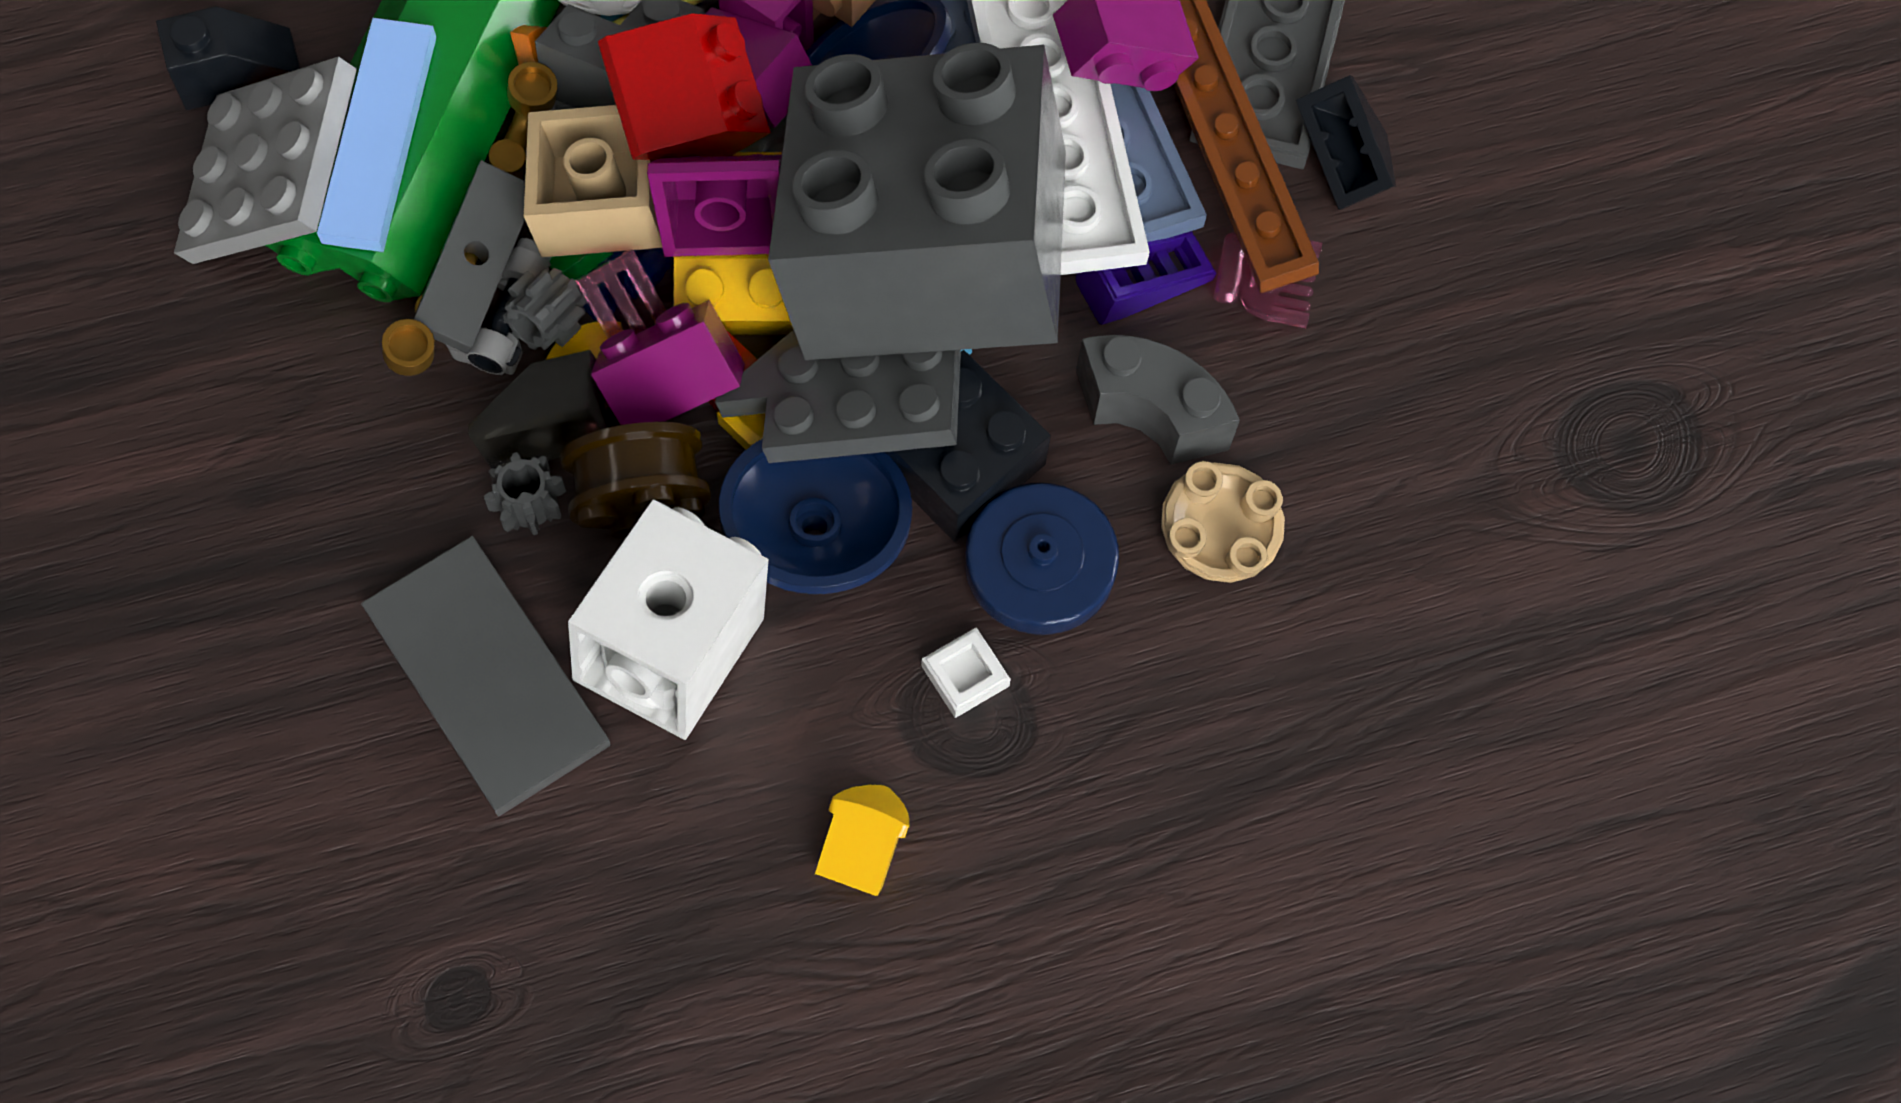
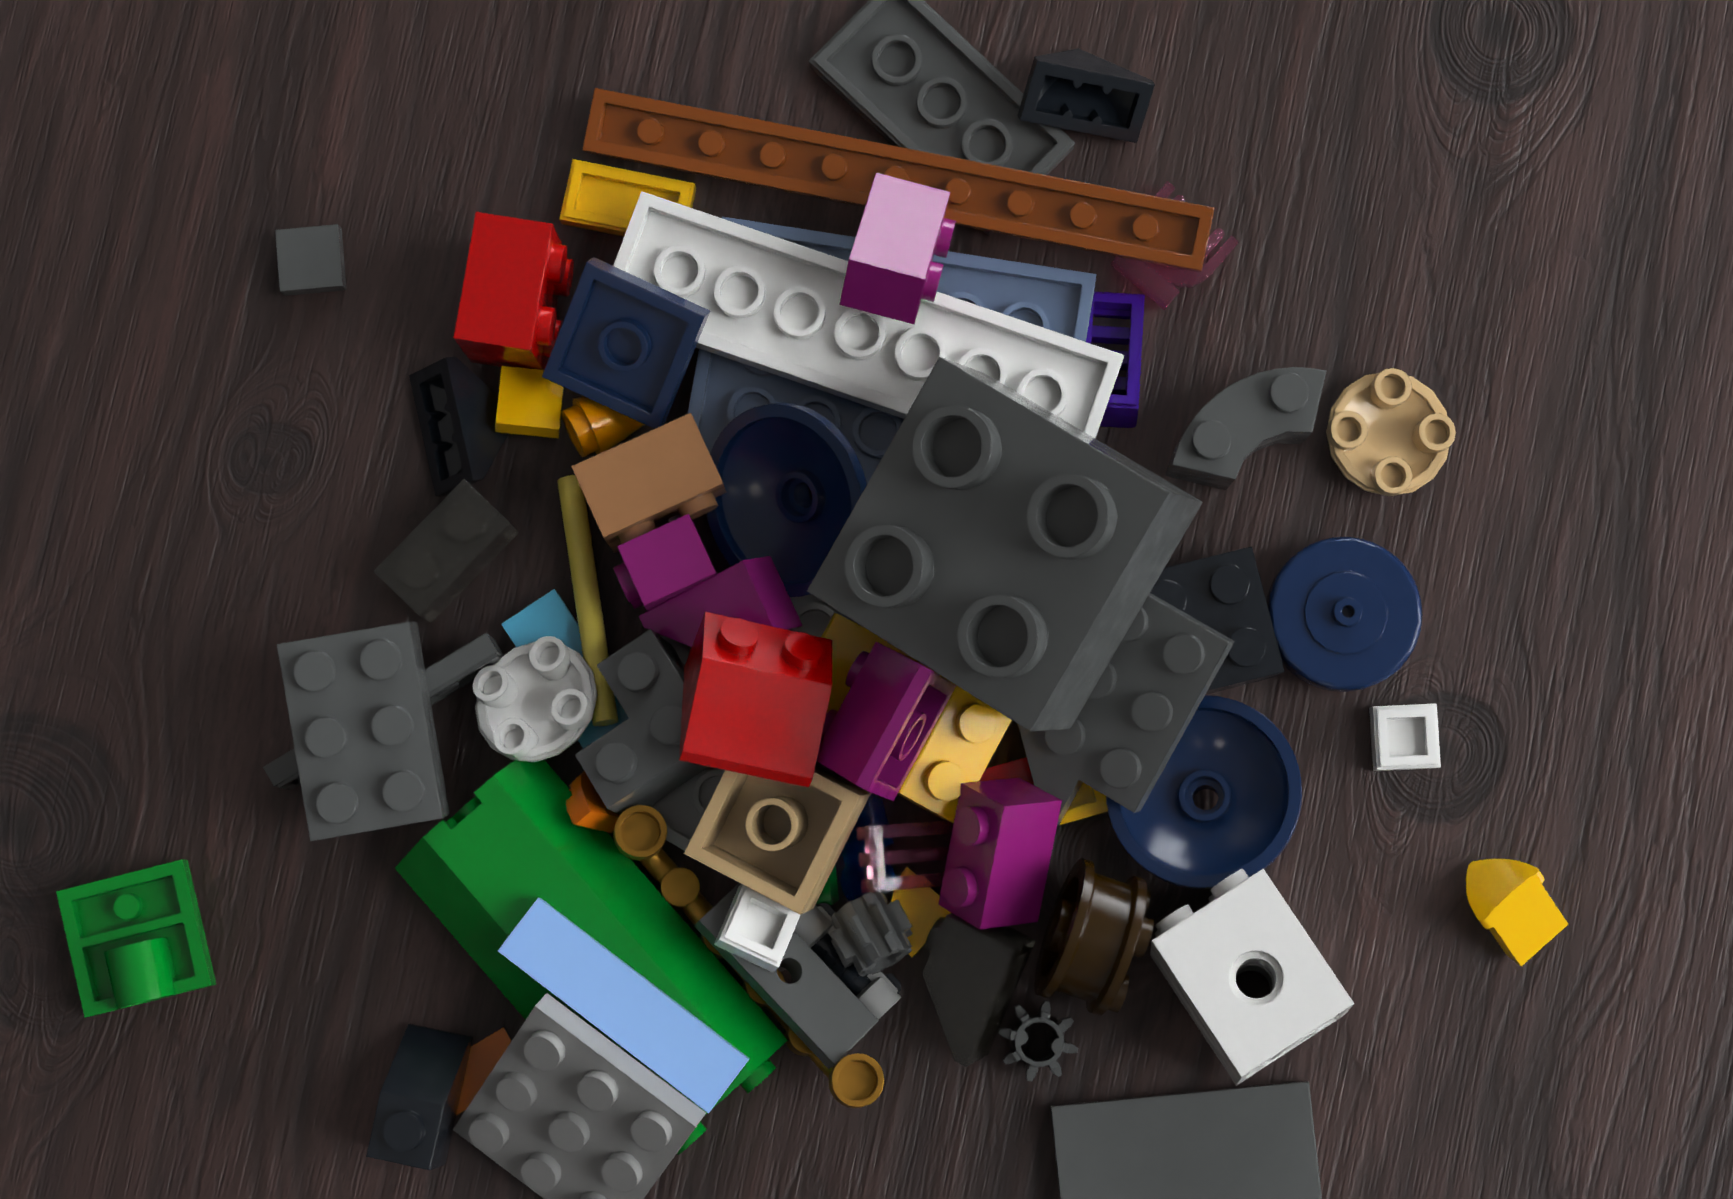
camera: 55 degrees left, 15 degrees up
(496, 208) = (757, 929): none -> white tile

